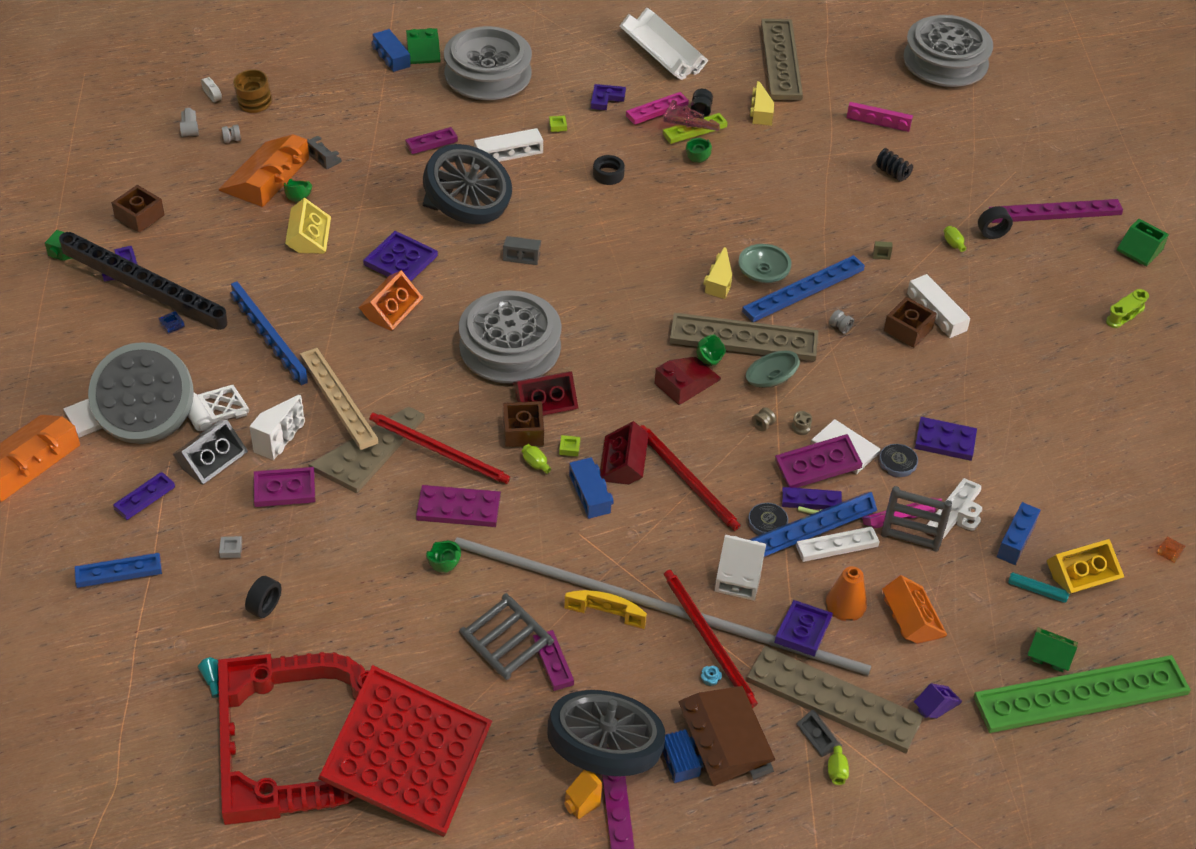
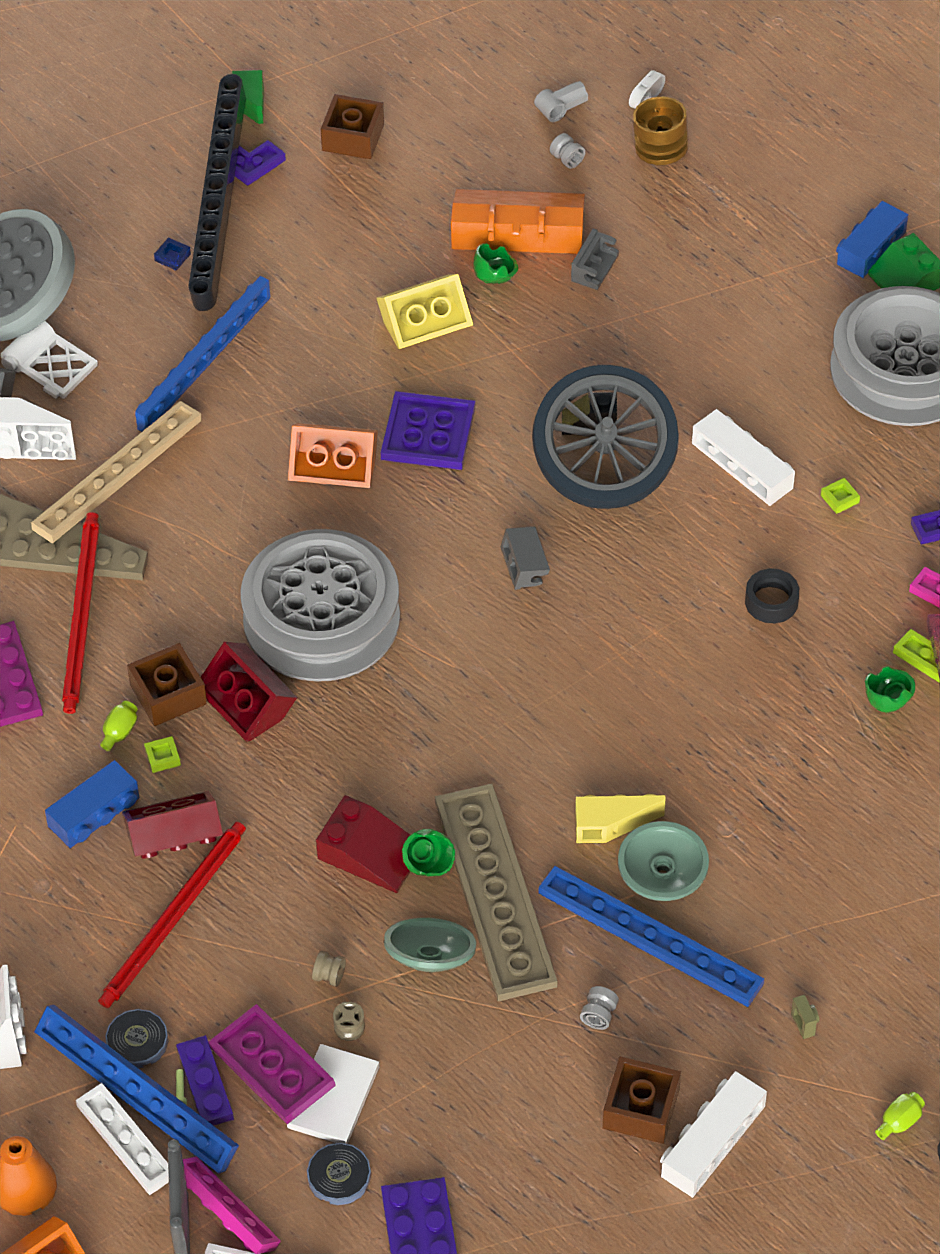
camera: 70 degrees right, 5 degrees up
(431, 140) = (700, 365): magenta plate -> none

